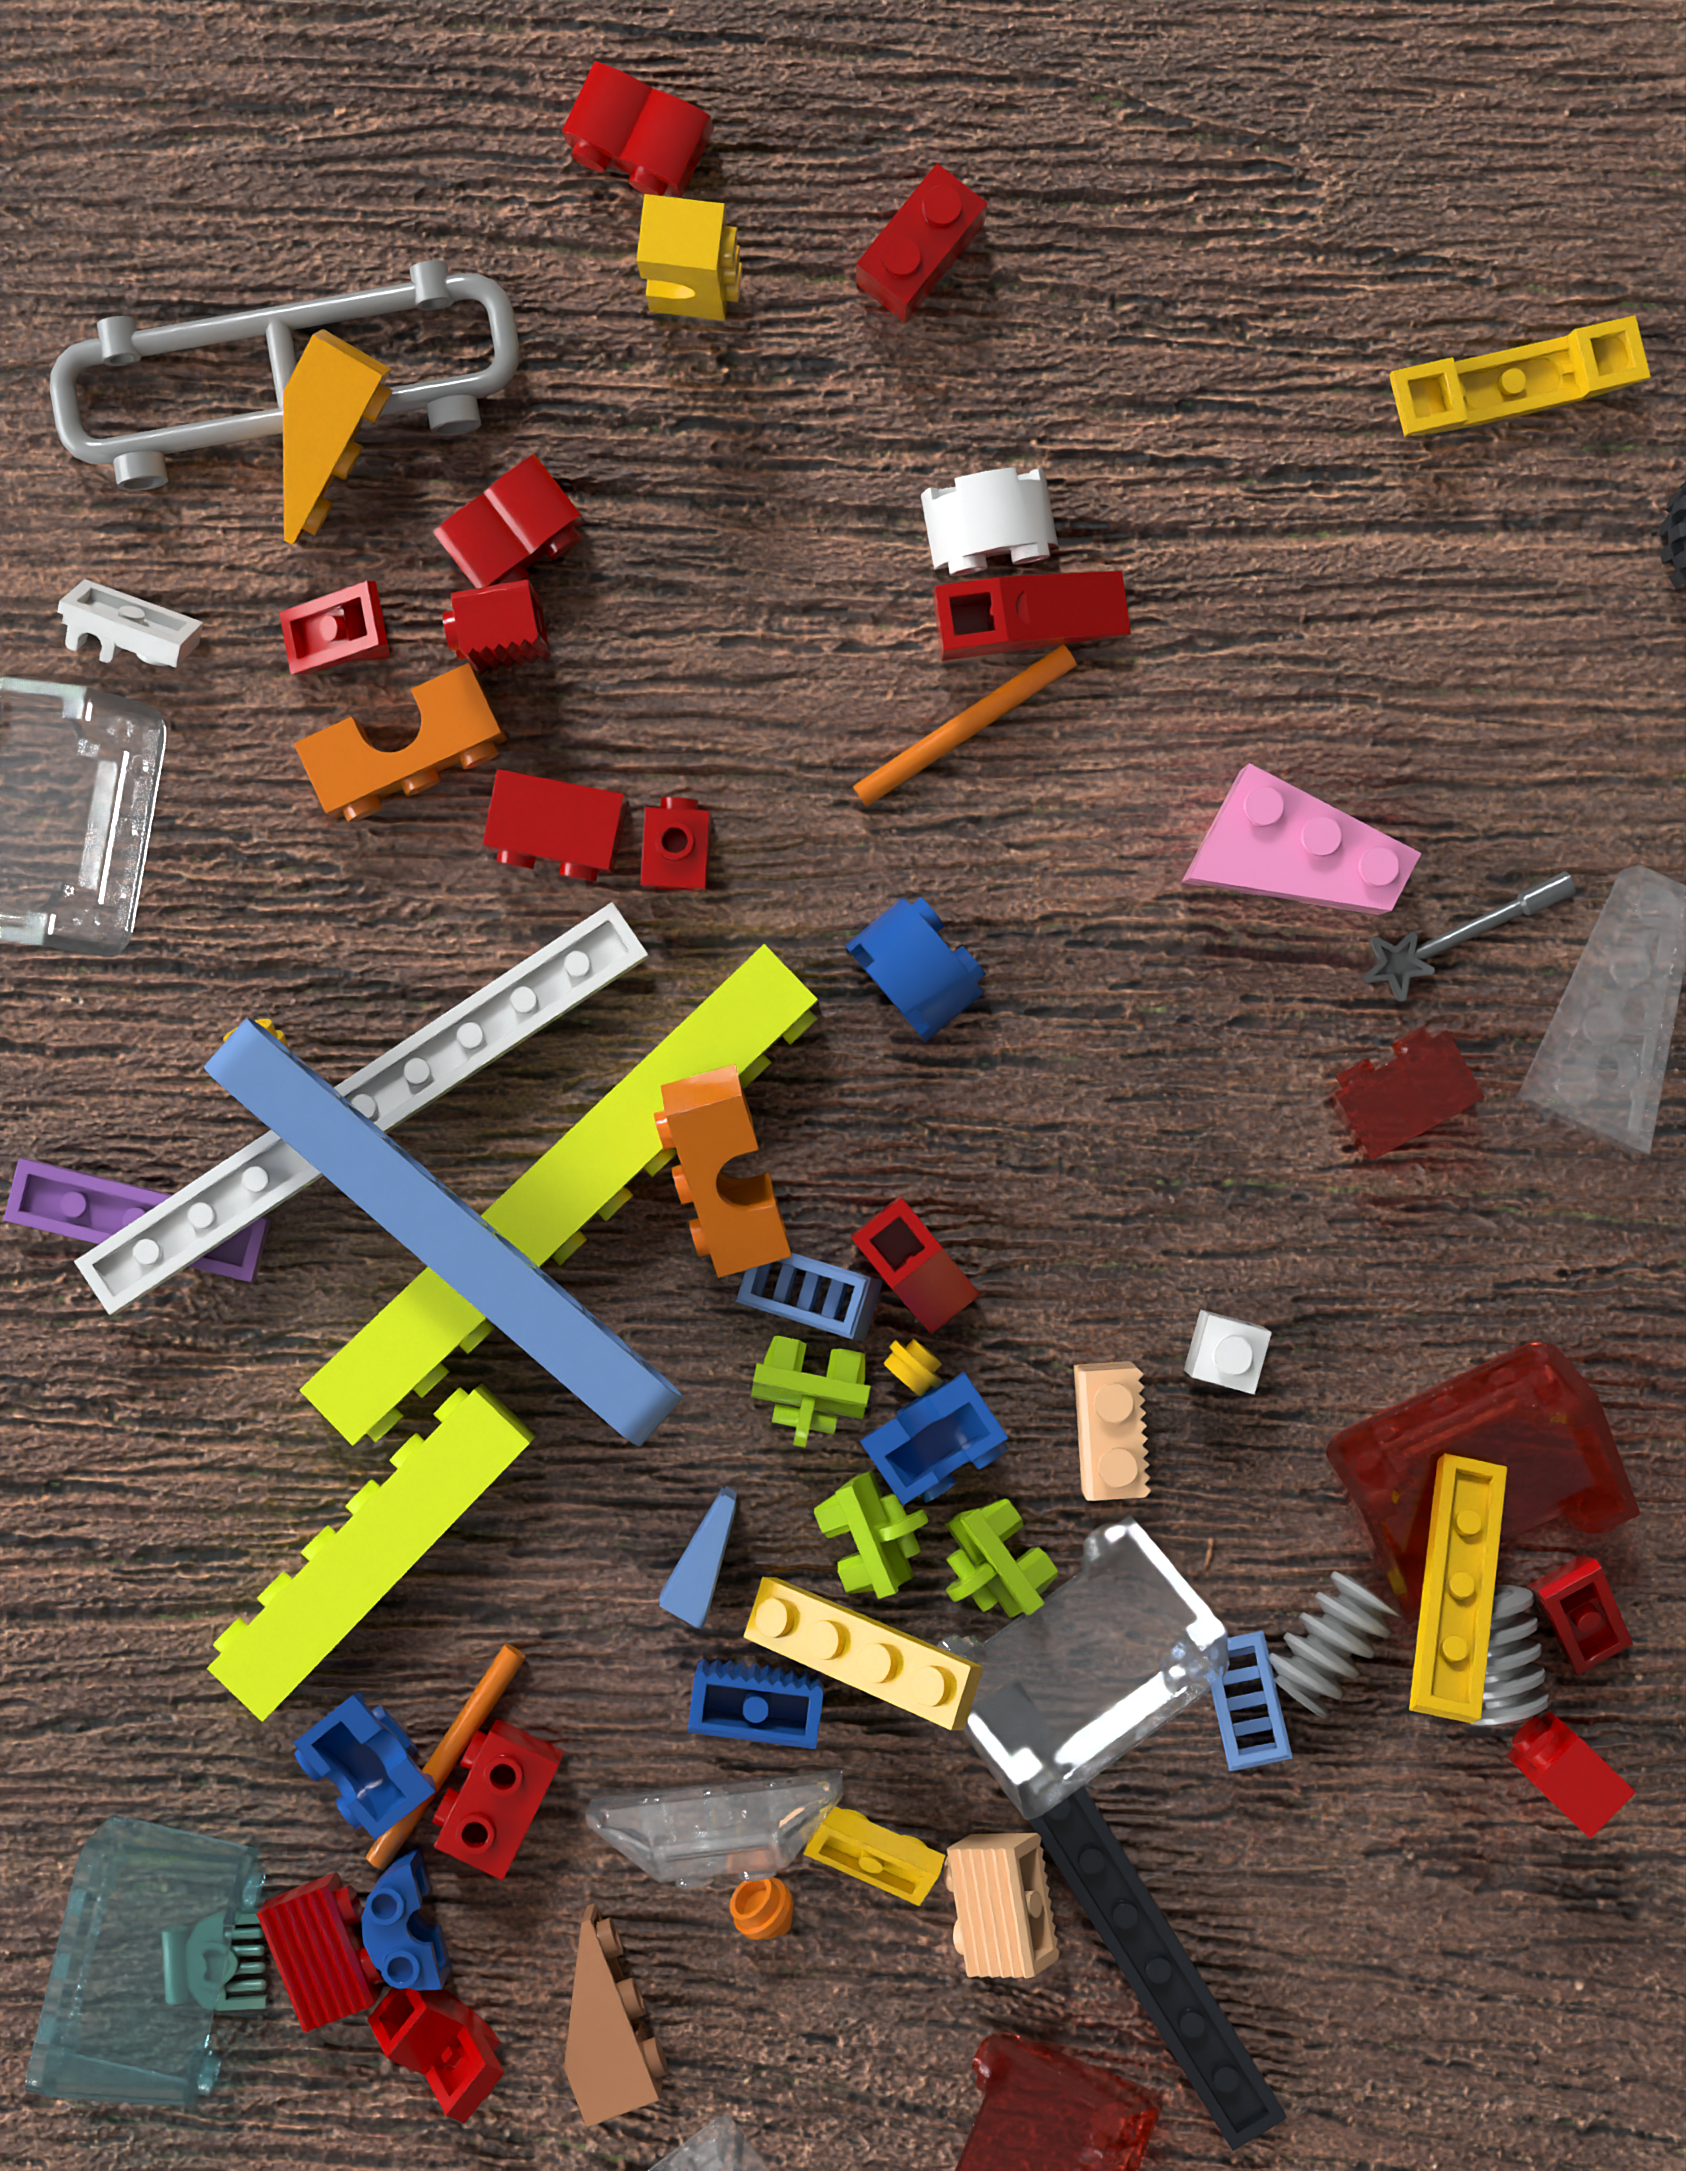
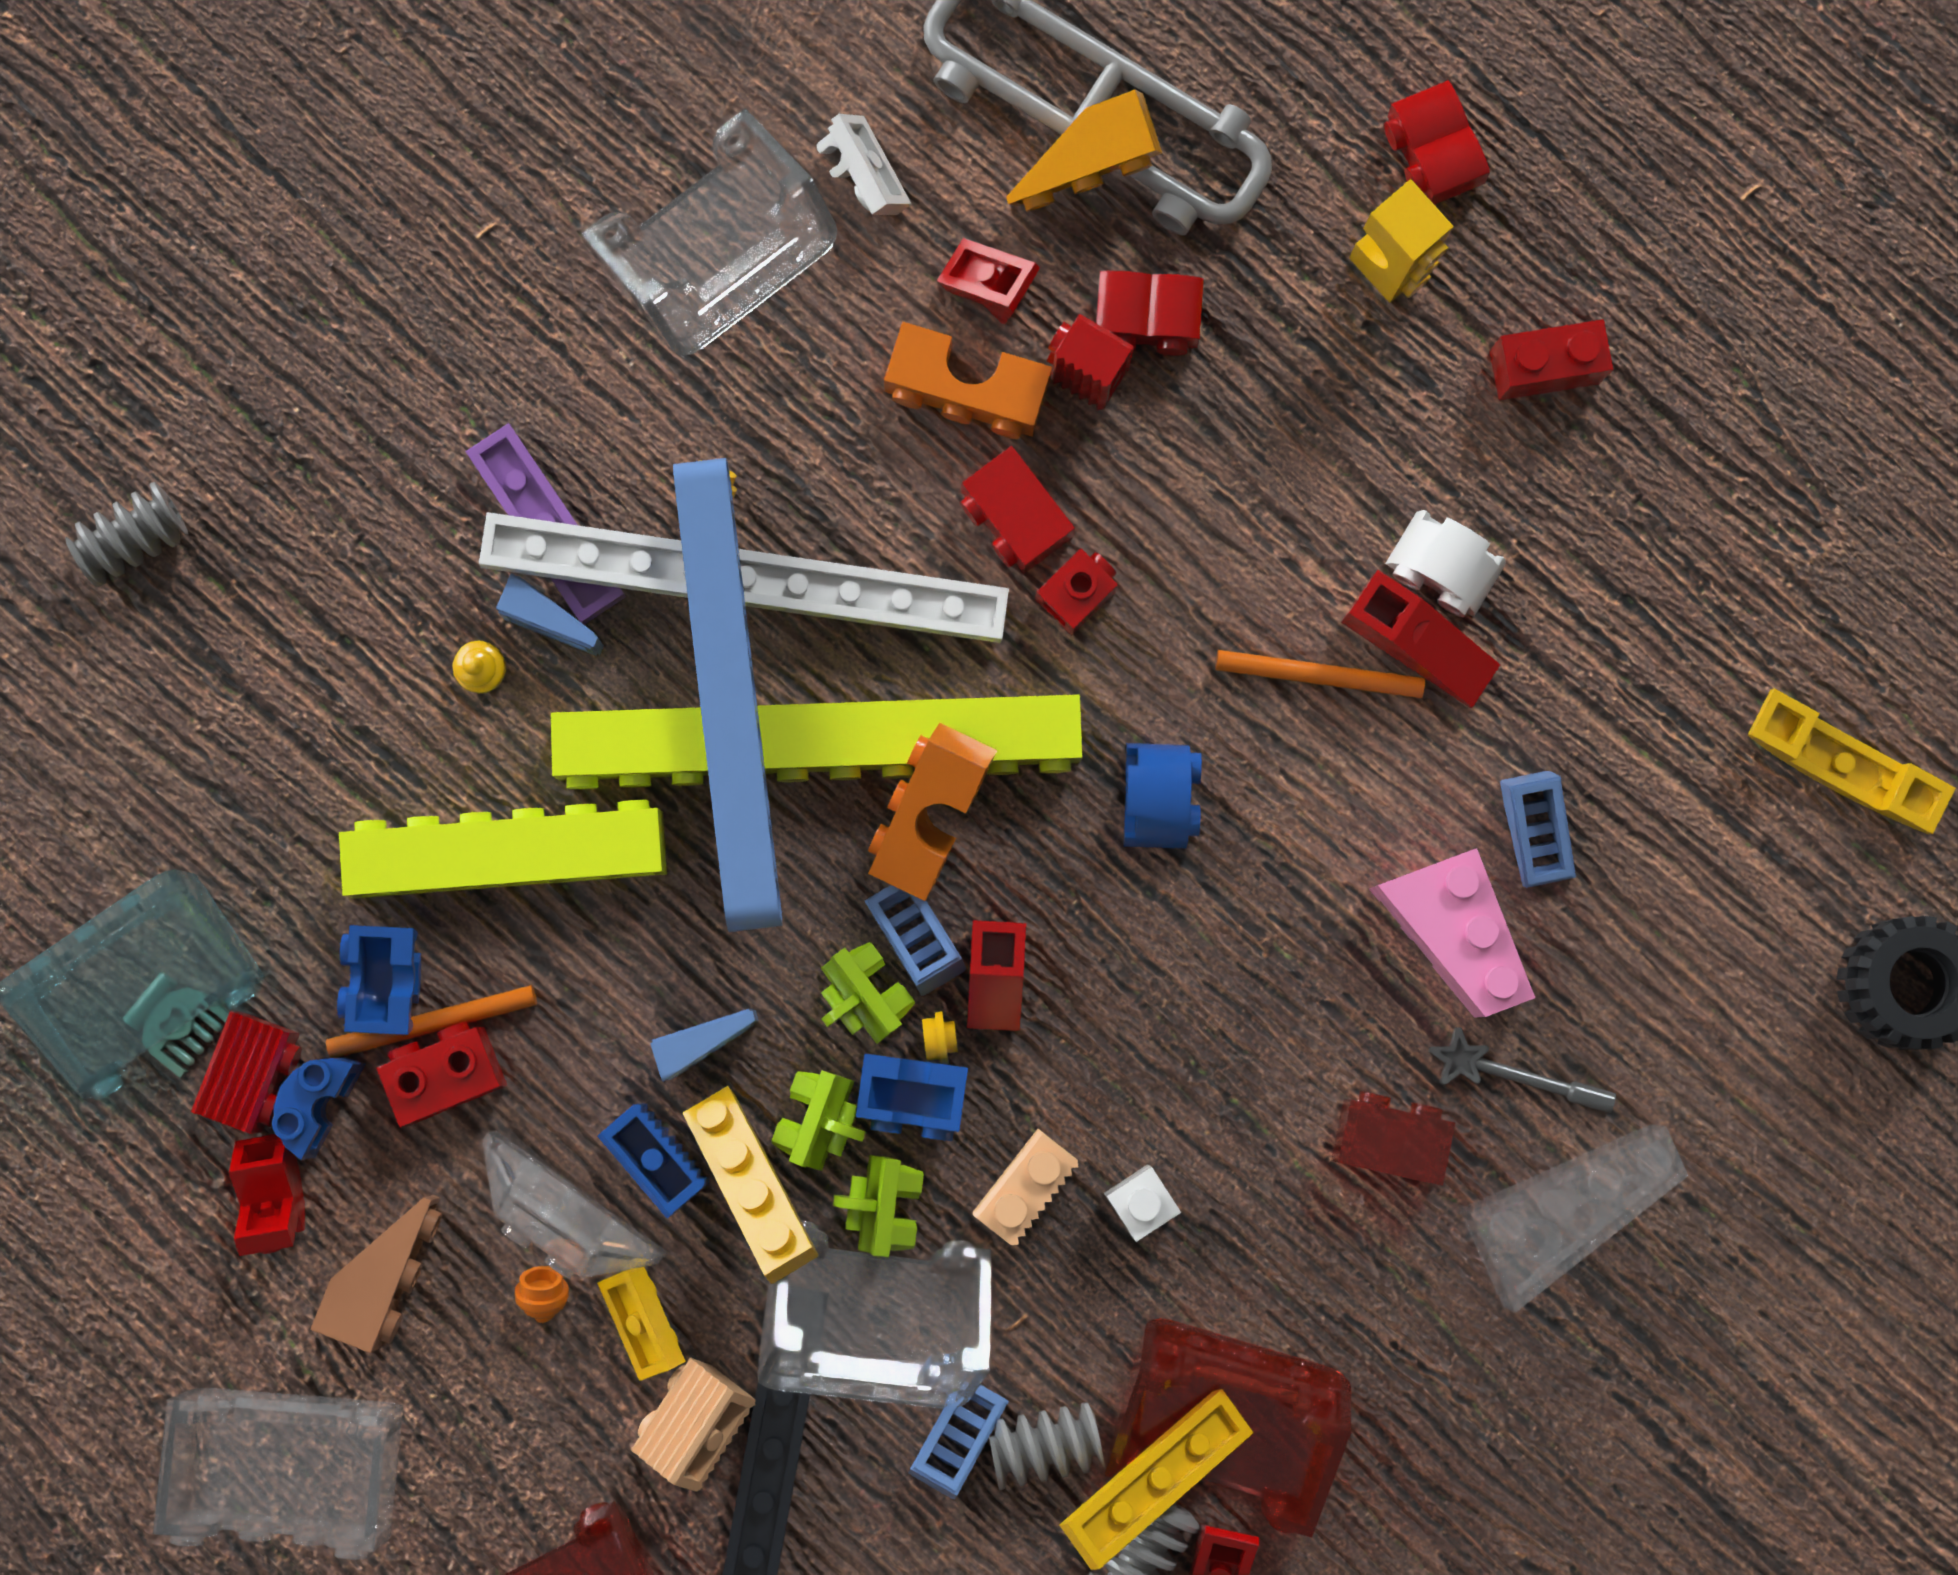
camera: 35 degrees right, 5 degrees down
(196, 1308) = (534, 611): none -> medium blue slope
(196, 1402) = (479, 666): none -> yellow plate
(1281, 656) = (1520, 831): none -> medium blue slope

